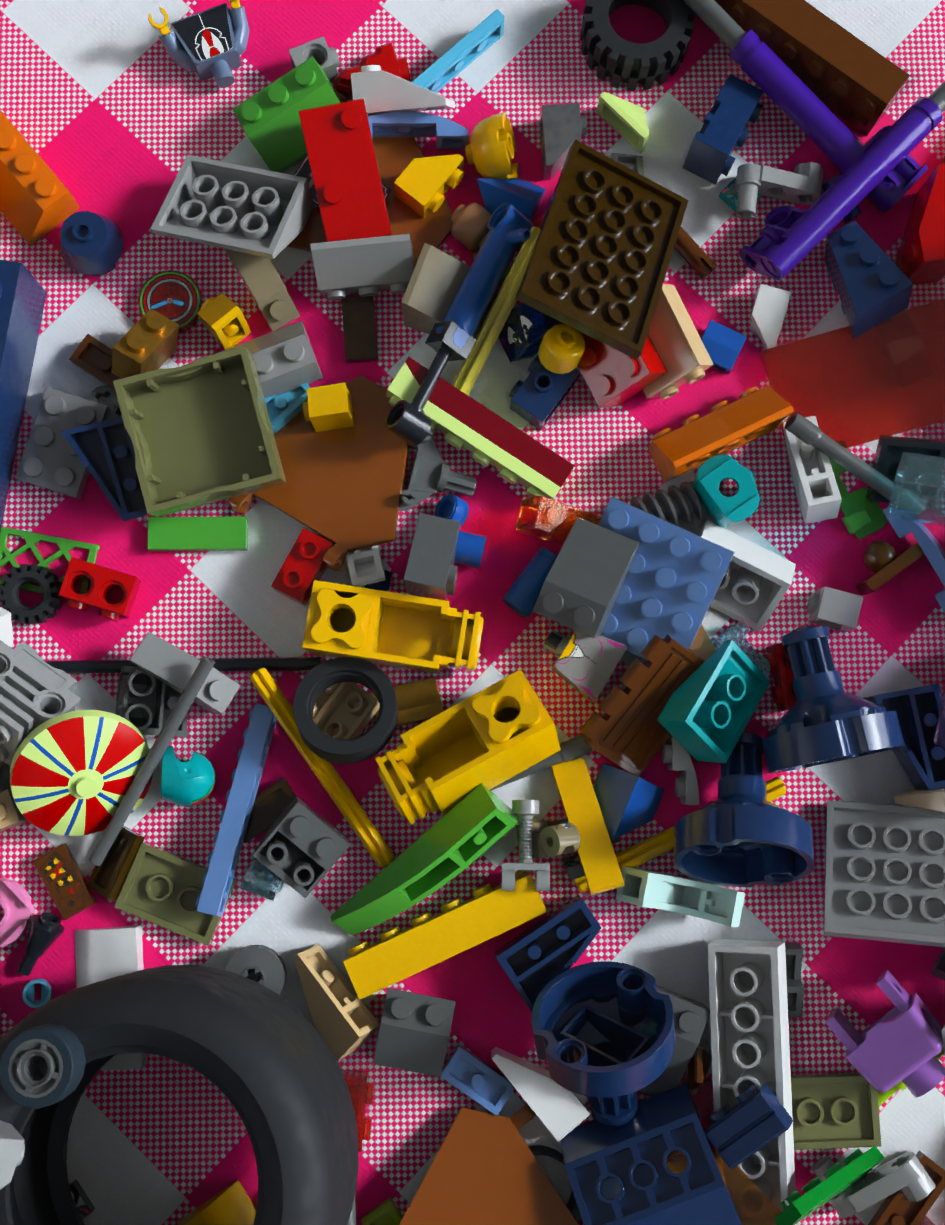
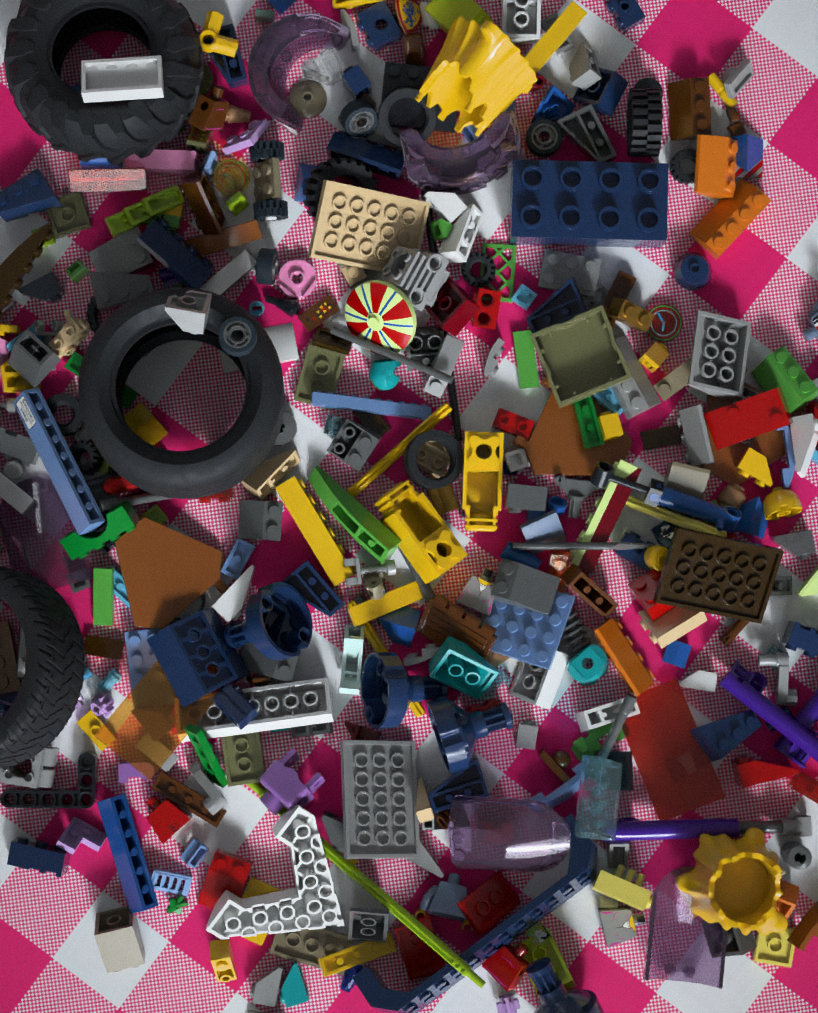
camera: 90 degrees right, 5 degrees up
(85, 644) = (452, 307): none -> dark red slope
(90, 523) = (524, 297): none -> medium azure plate
(193, 590) = (491, 363): none -> light grey slope
(319, 440) = (588, 423): none -> green plate
(494, 538) = (543, 529): none -> sand blue slope
(525, 479) = (579, 545): none -> dark grey piece
(603, 471) = (589, 590): none -> reddish brown piece
(806, 894) = (361, 733): none -> dark red slope

